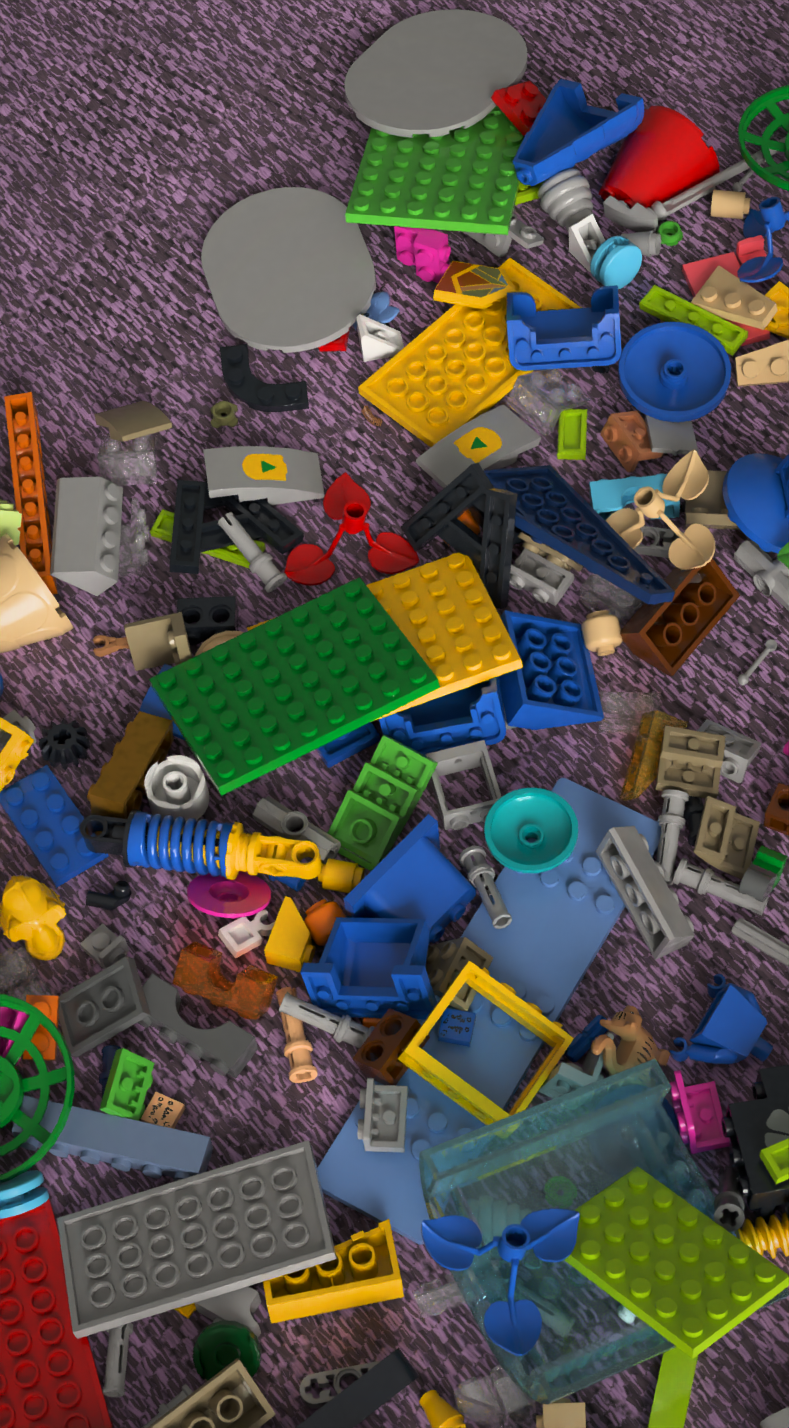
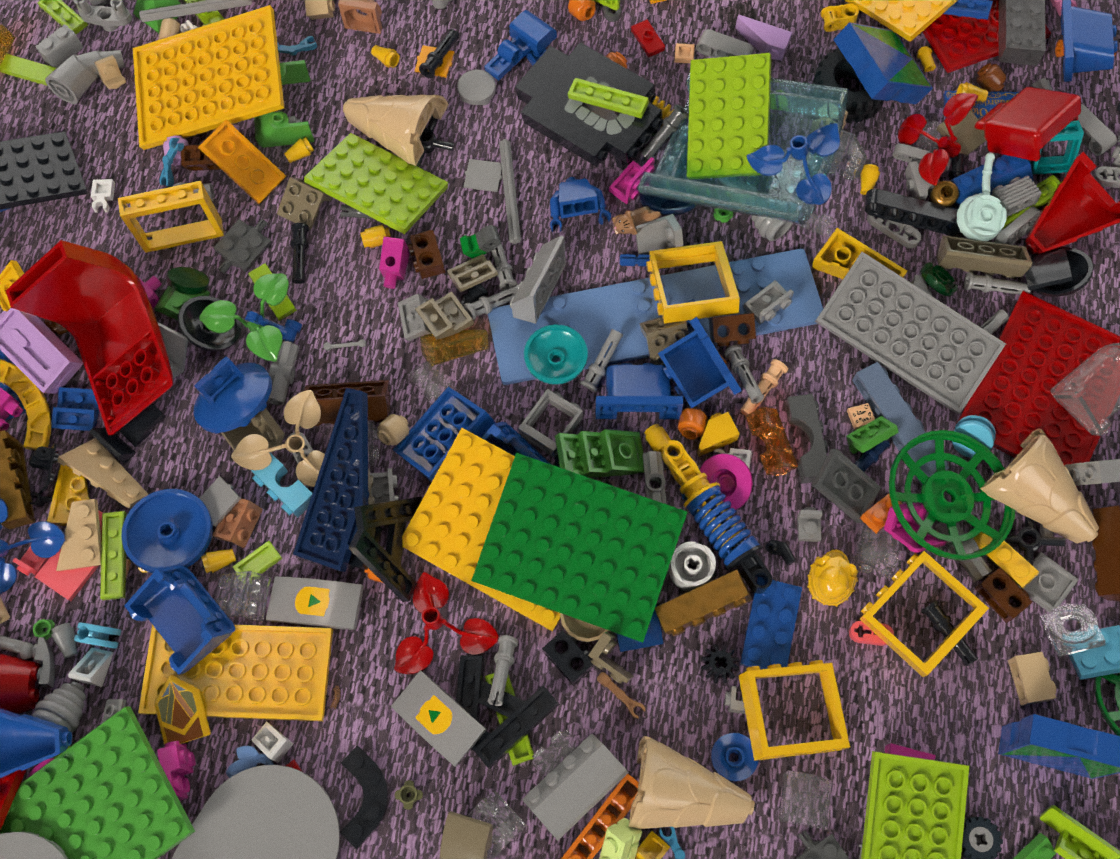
camera: 135 degrees left, 10 degrees up
(605, 400) = (217, 560): none -> yellow cone

